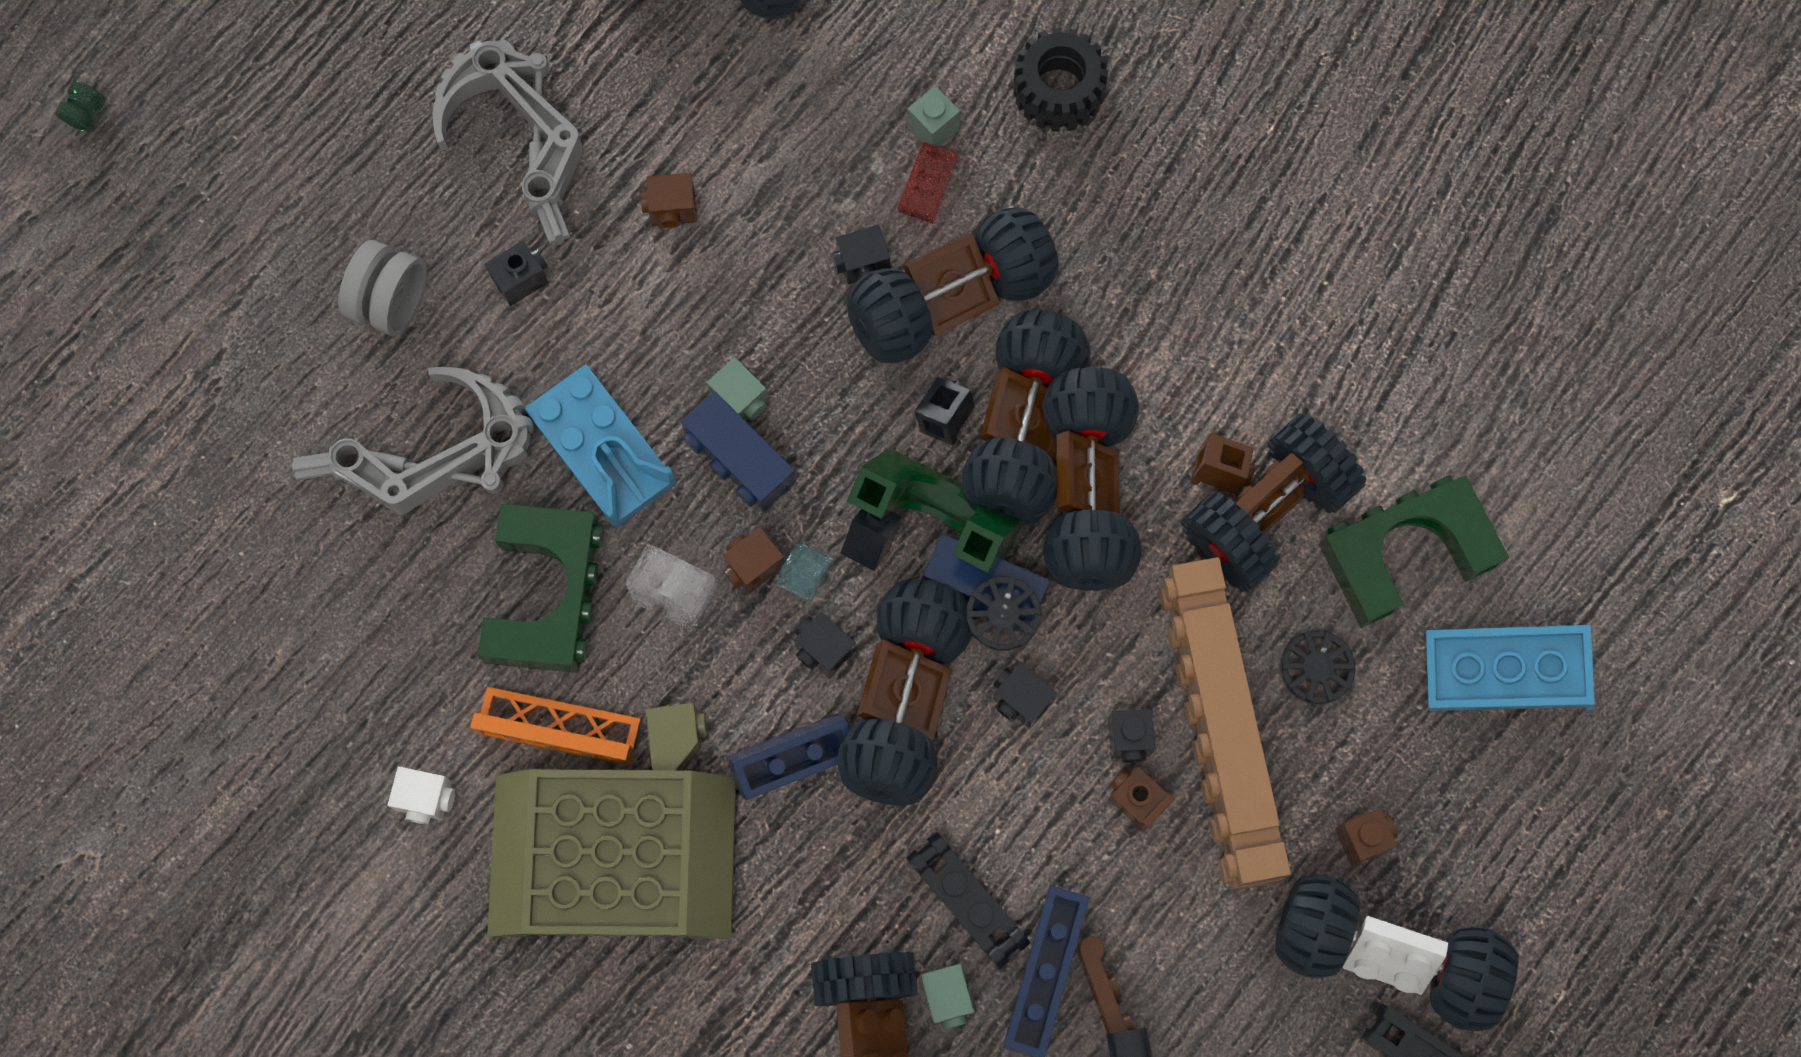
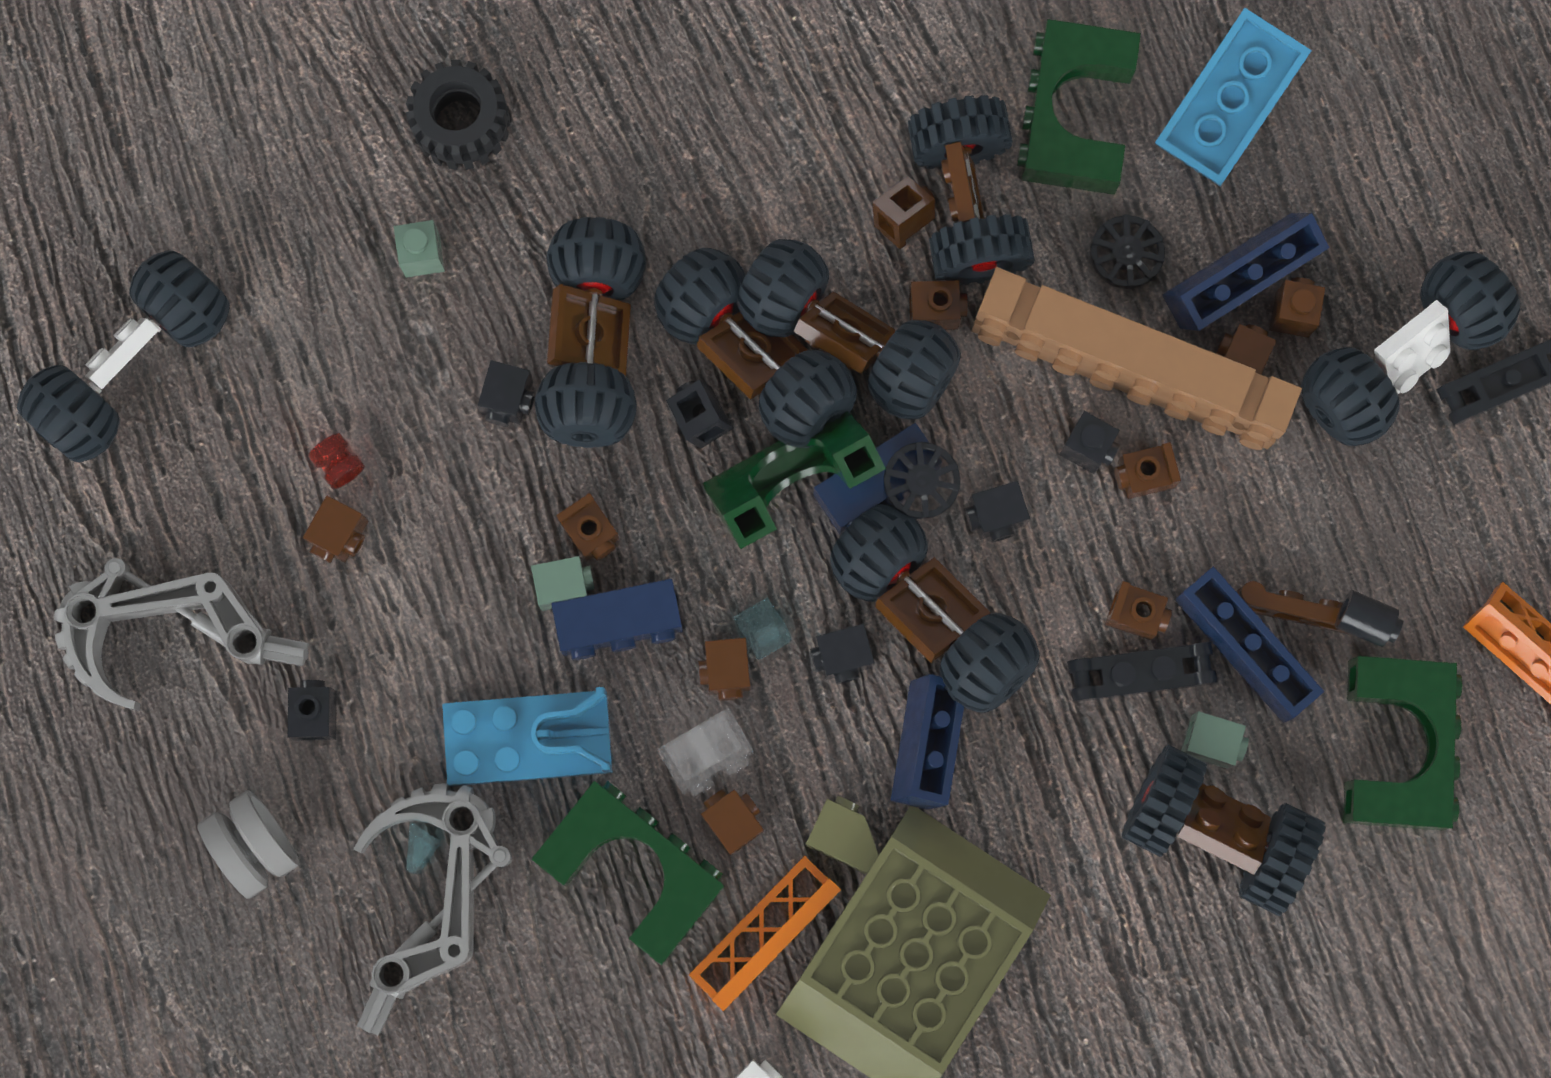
camera: 60 degrees left, 5 degrees up
(461, 417) = (420, 848): none -> clear light blue slope
(631, 642) = (732, 819): none -> reddish brown brick
(725, 166) = (336, 461): none -> clear red wheel
(798, 399) = (578, 514): none -> reddish brown brick
(870, 538) = (777, 553): black brick -> none
(927, 182) = (474, 292): clear red plate -> none
(1015, 847) = (1124, 615): none -> reddish brown brick
(1163, 539) = (938, 303): none -> reddish brown brick
(1300, 816) = (1247, 346): none -> reddish brown brick
(1367, 773) = (1245, 271): none -> dark blue brick

